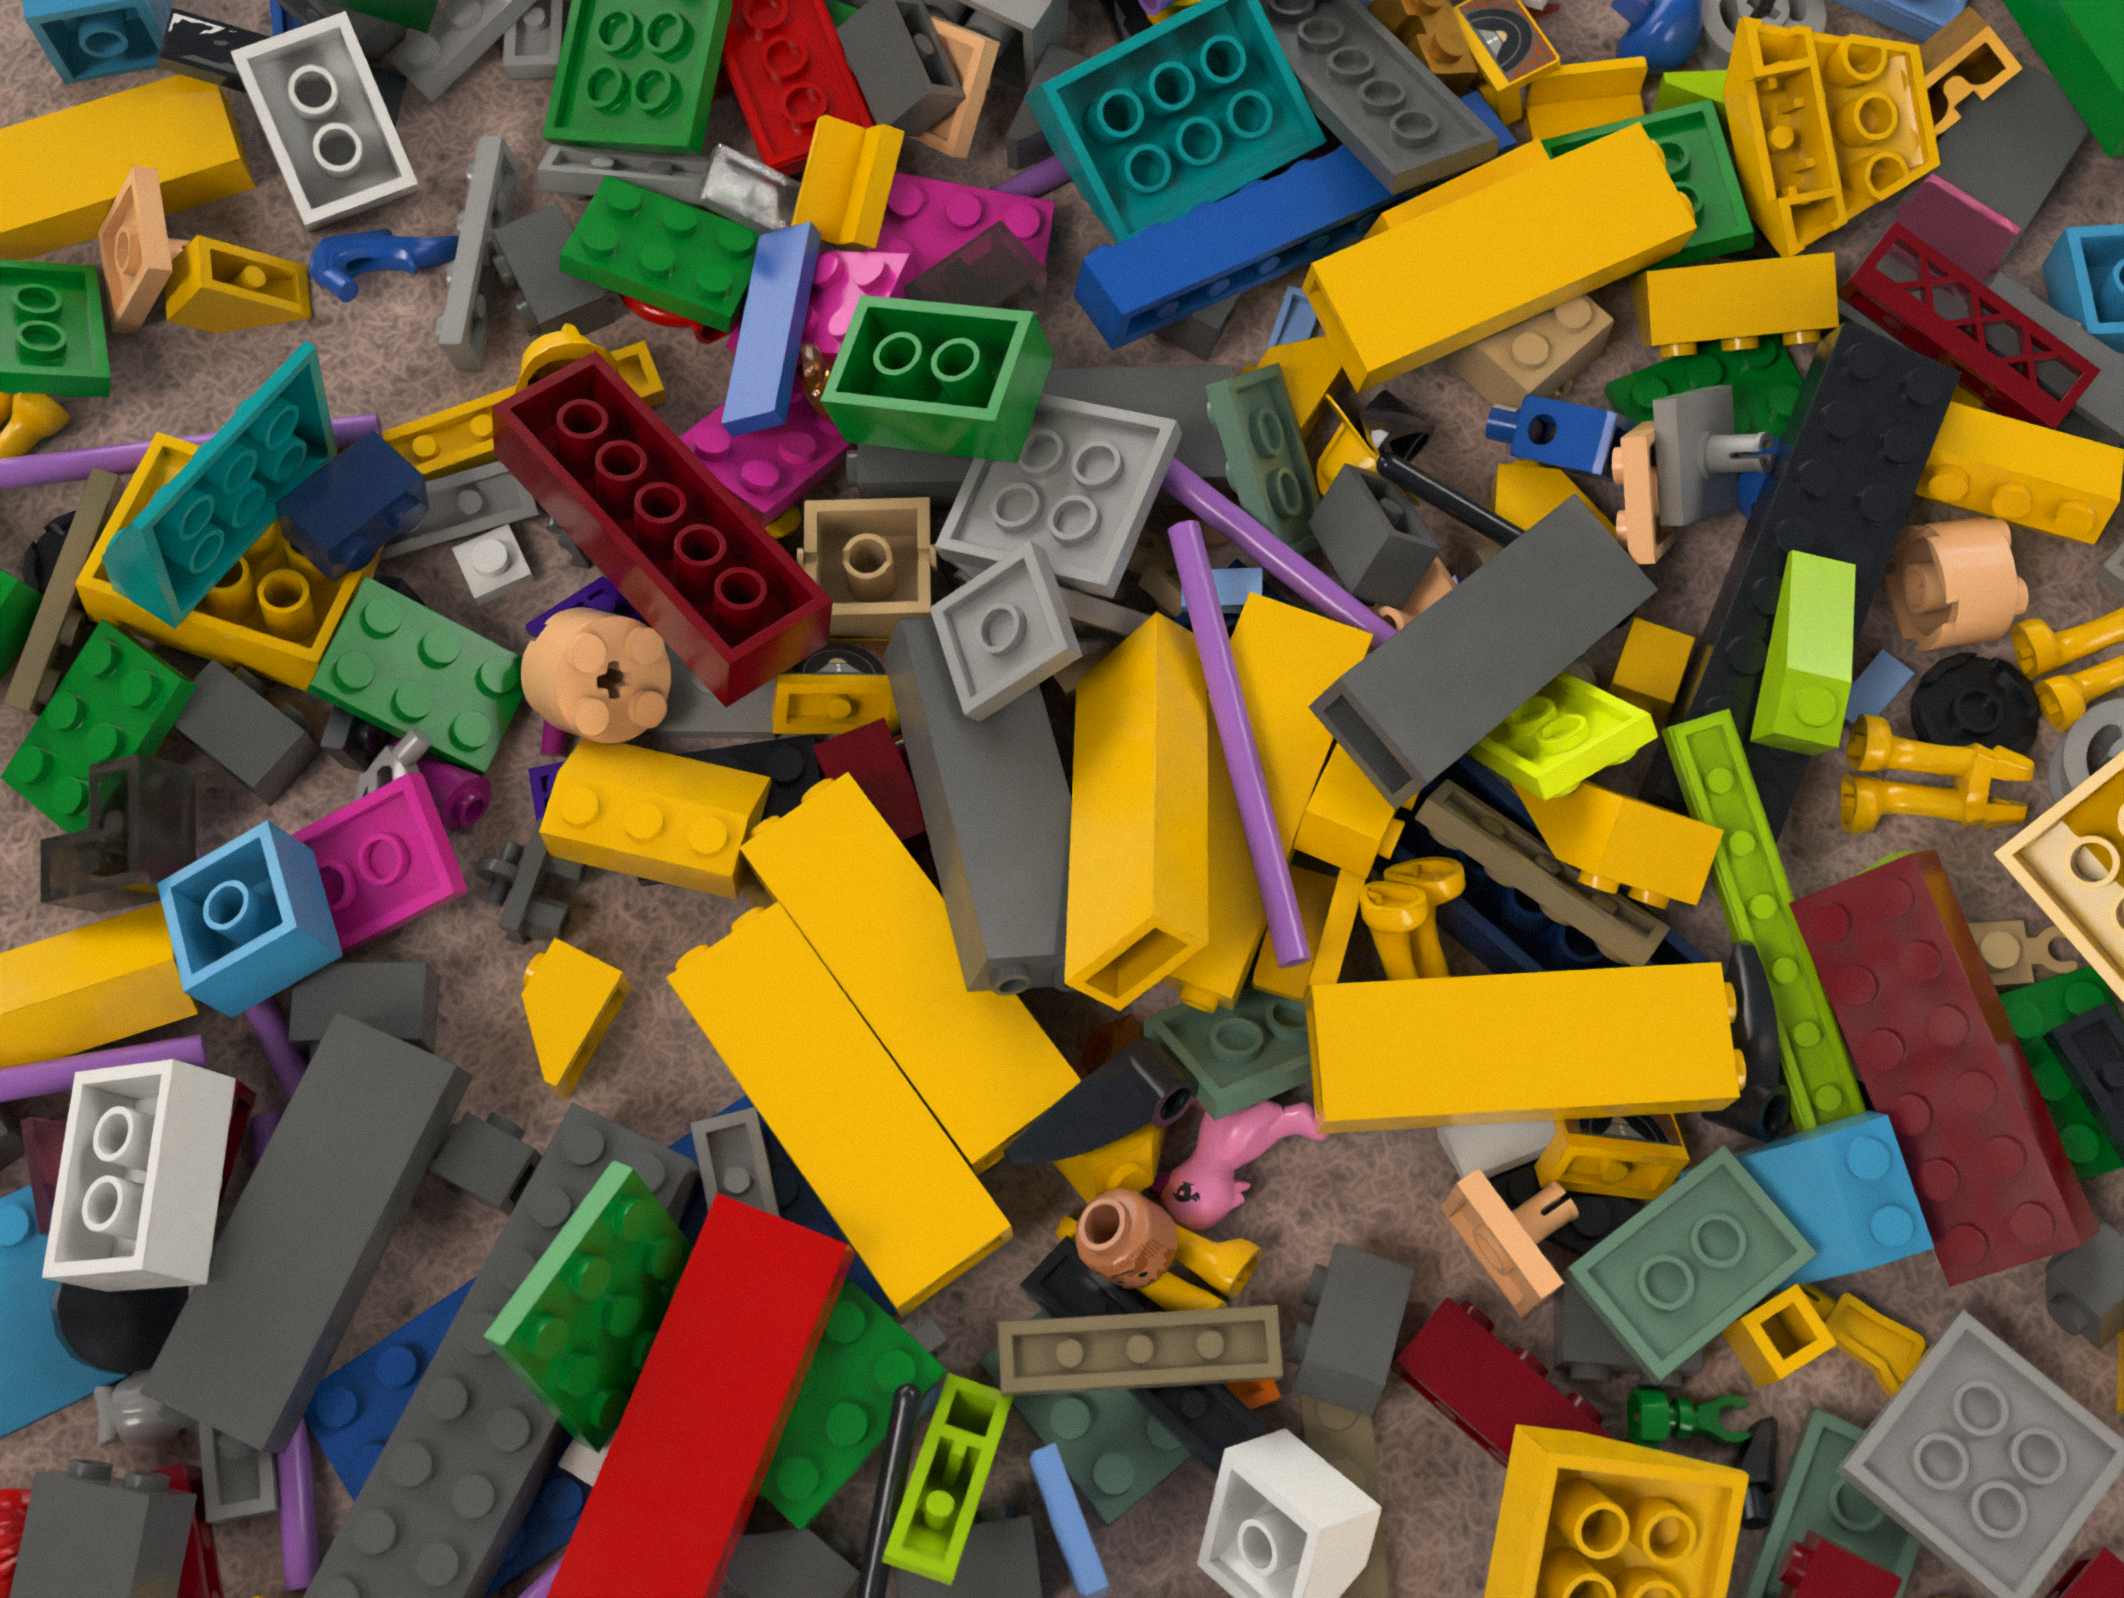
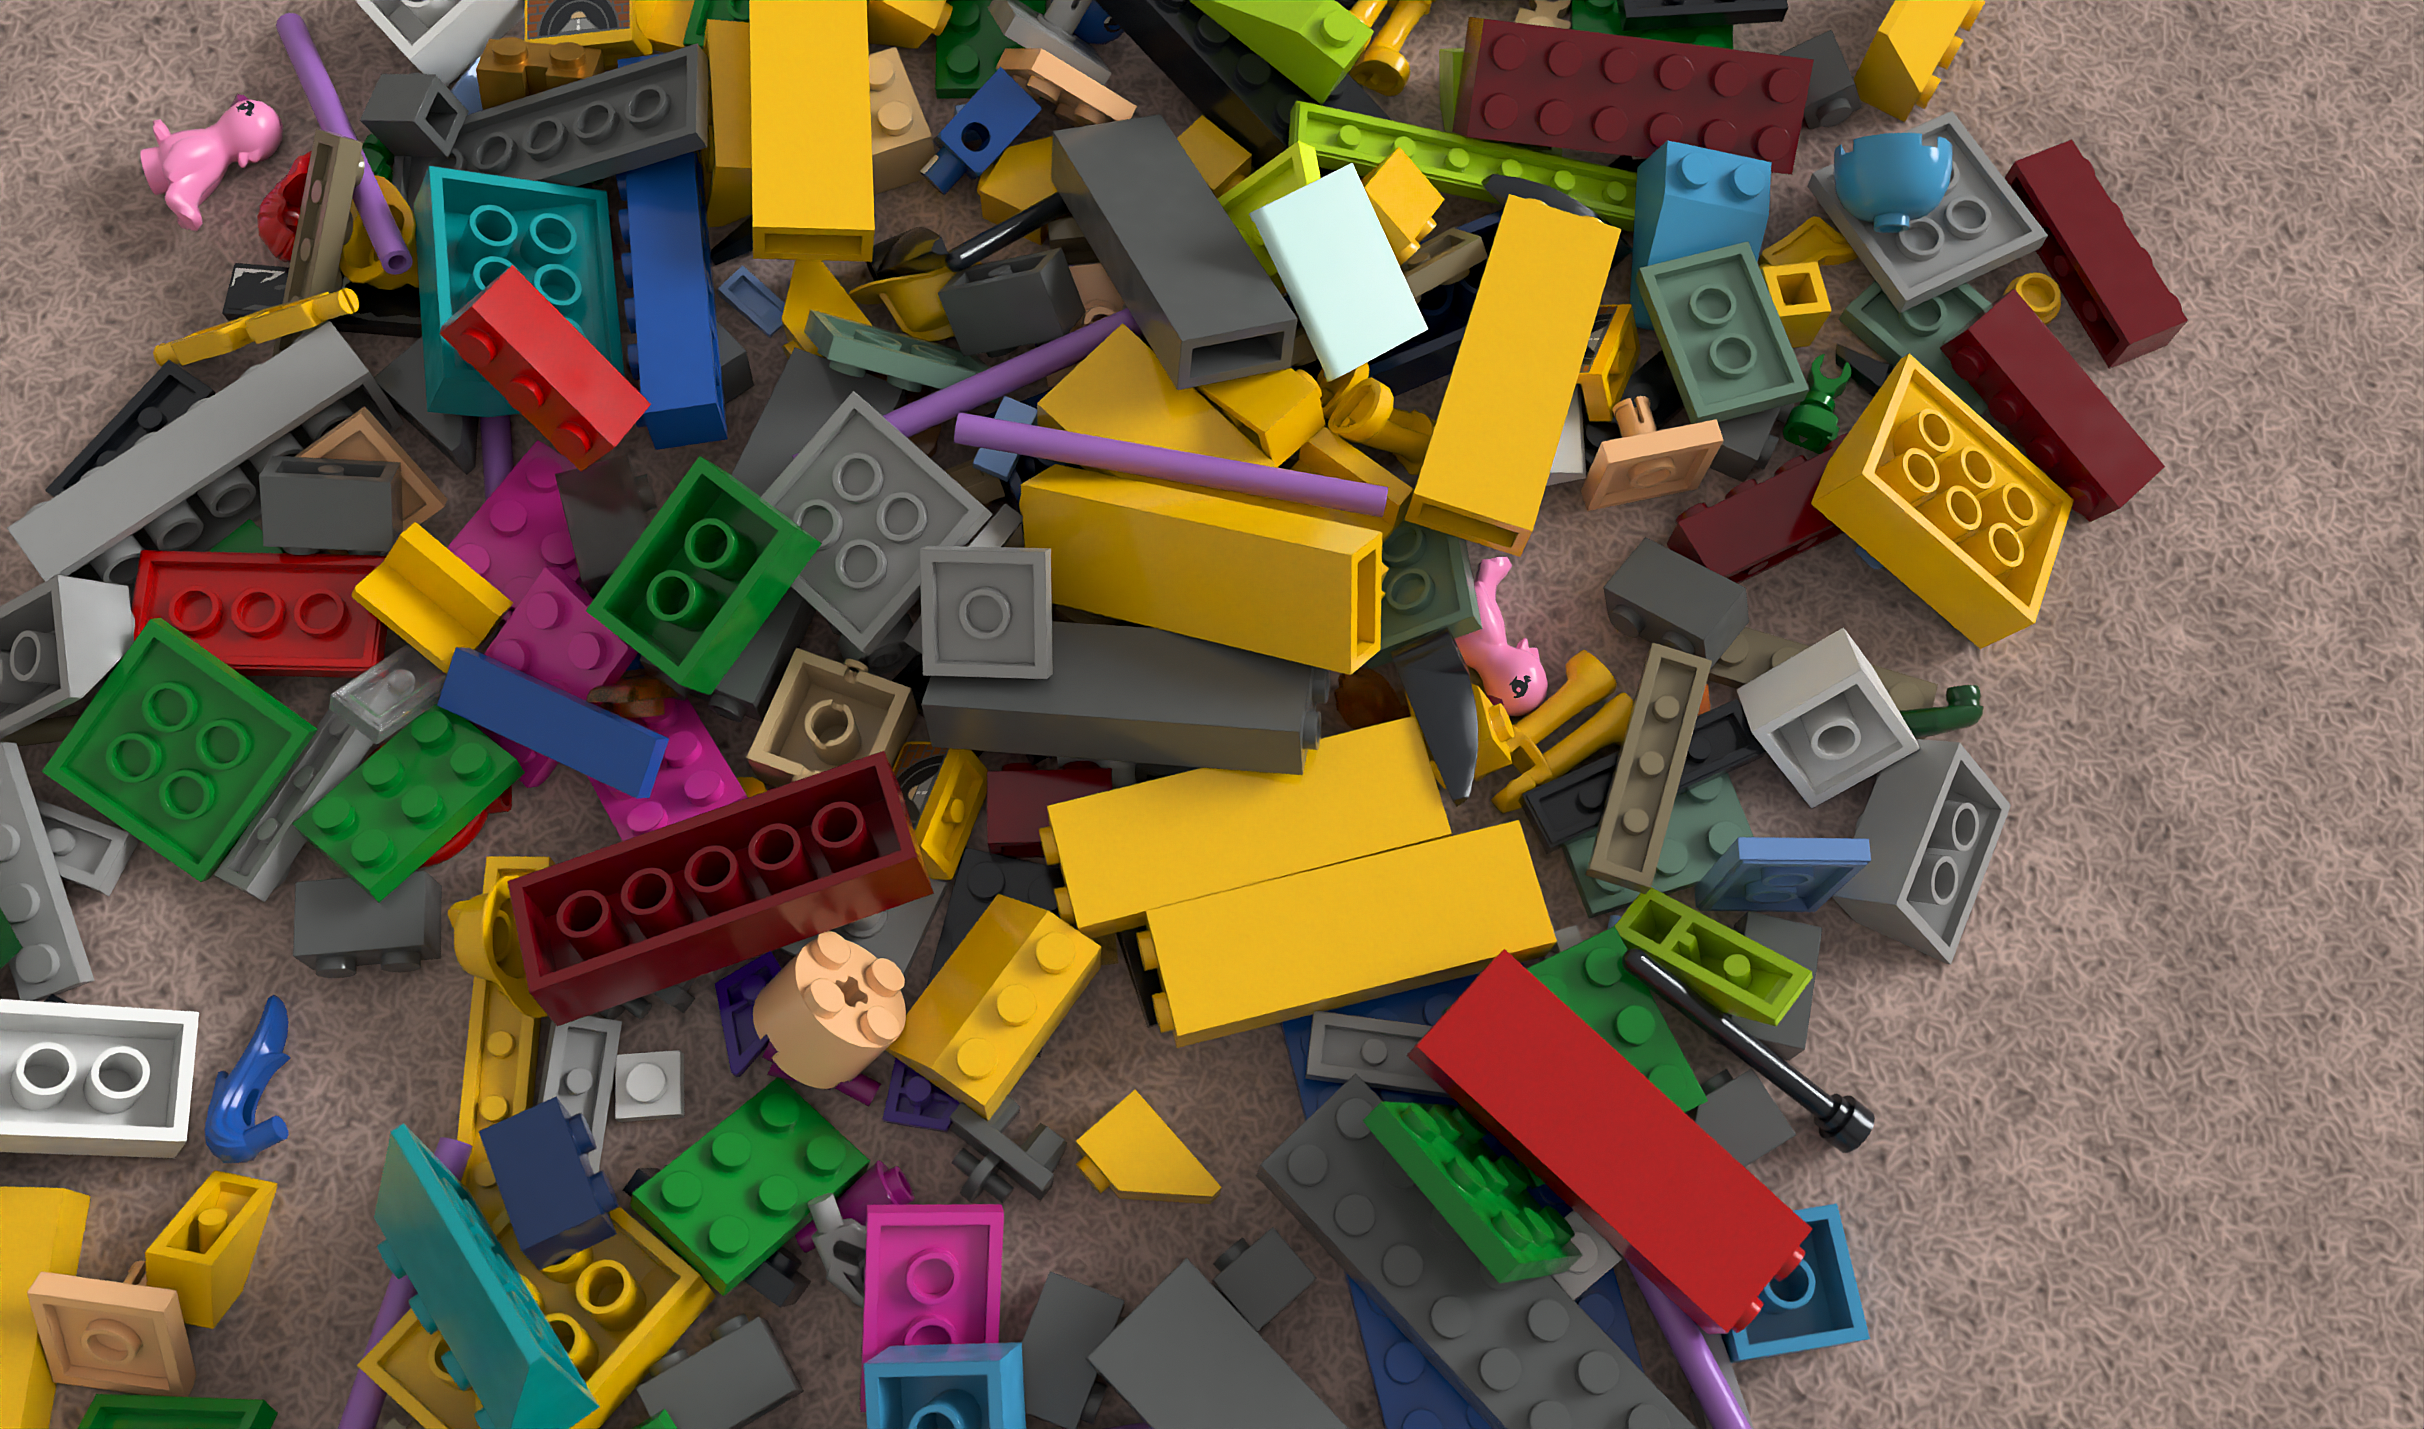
camera: 75 degrees left, 0 degrees up
(472, 276) = (278, 974): light grey plate -> none
(1067, 153) = (545, 368): none -> slope
(1126, 1238) = (1538, 754): nougat head -> none
(1521, 814) = (1339, 271): none -> light aqua piece
(1974, 1393) = (1892, 178): none -> dark azure cylinder

